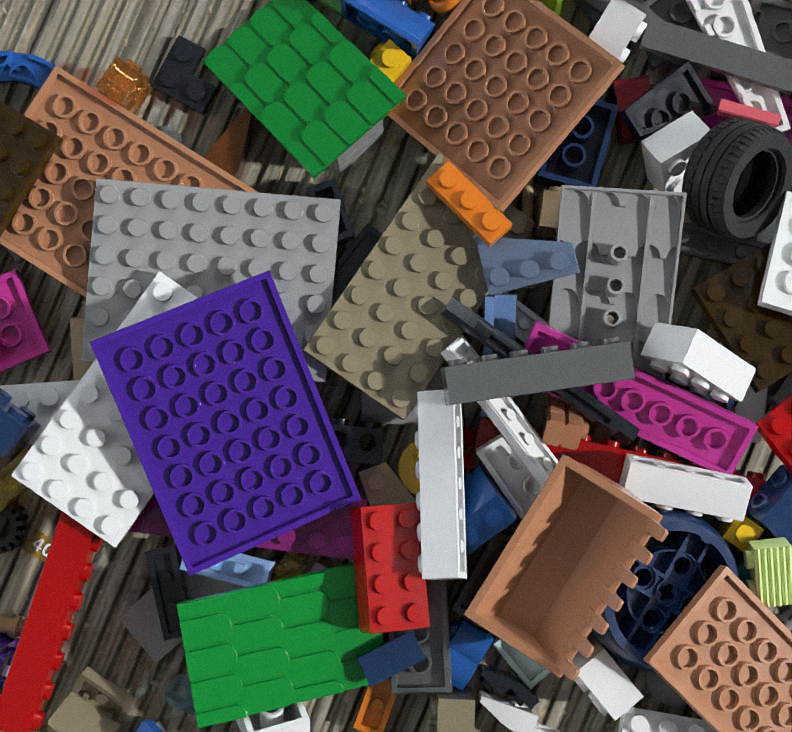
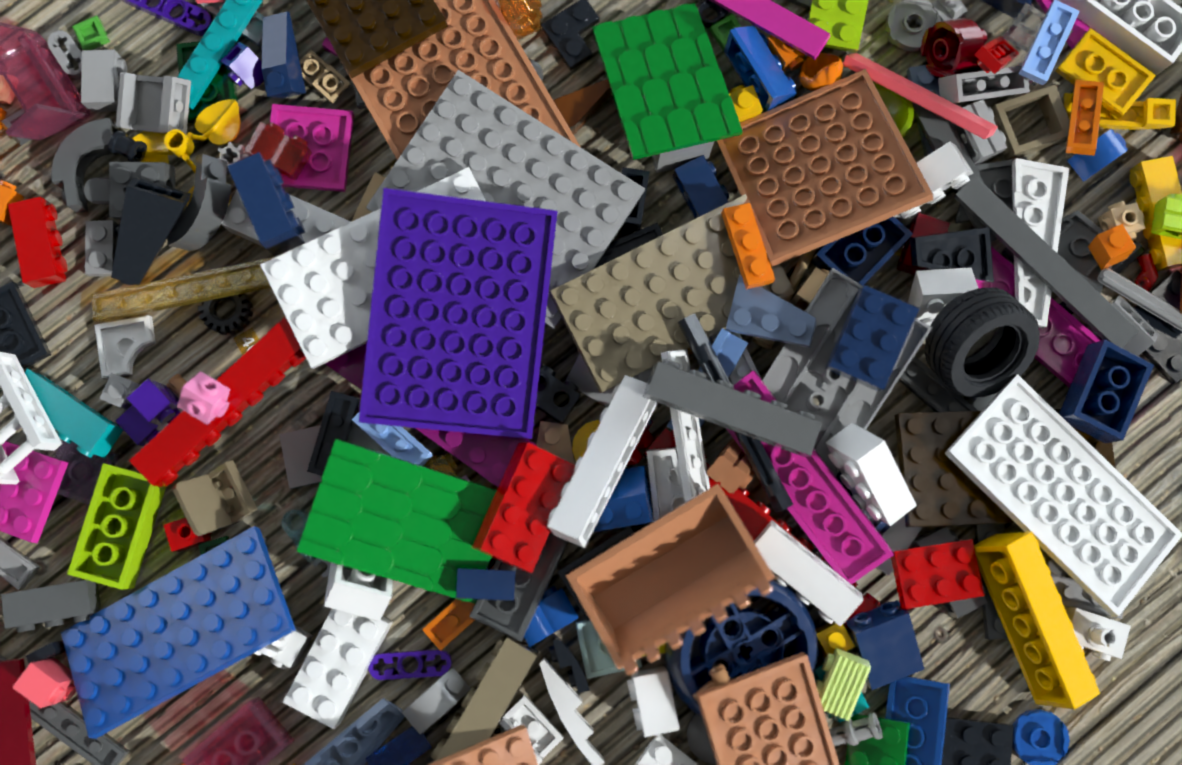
camera: 25 degrees right, 5 degrees down
(29, 632) = (204, 398): none -> bright pink brick
(392, 166) = (700, 187): none -> dark blue brick
(636, 235) = (872, 338): none -> dark blue brick
(657, 632) = (719, 678): none -> medium nougat hand
(736, 110) = (1005, 283): coral tile -> none

